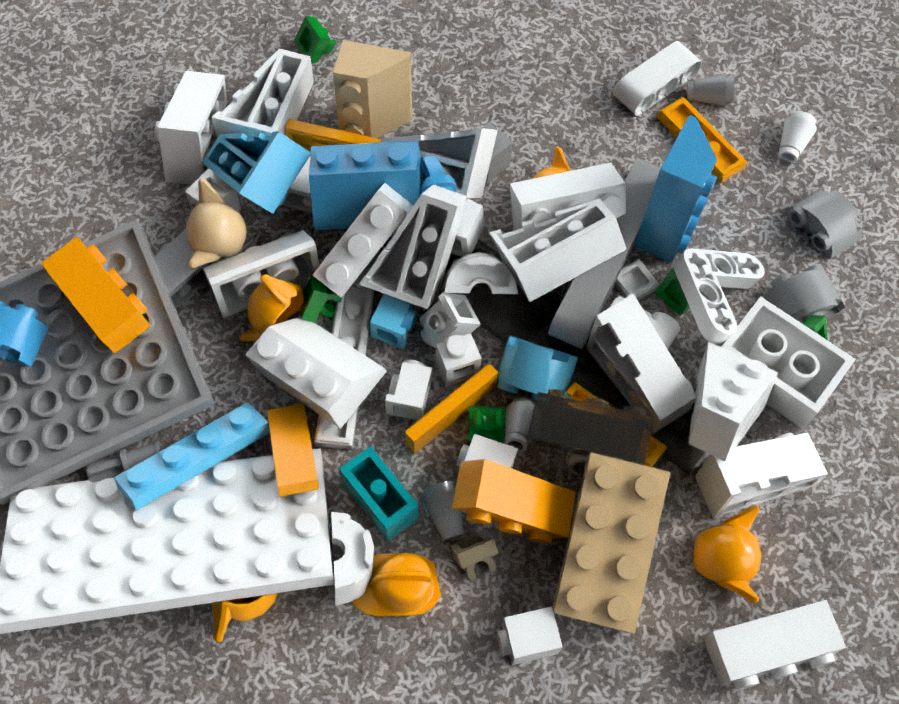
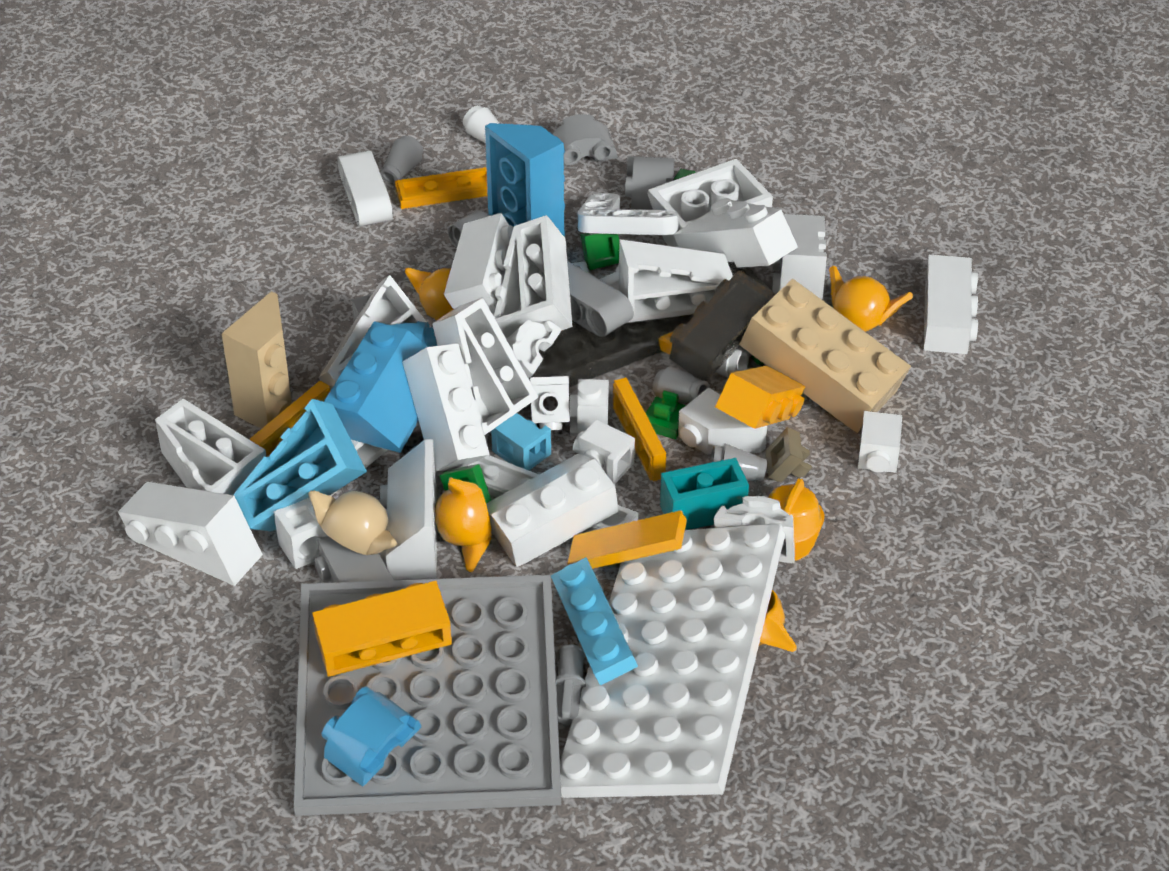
camera: 65 degrees left, 20 degrees down
(313, 39) = (138, 410): green tile -> none
(534, 368) = (631, 357): medium azure cylinder -> none

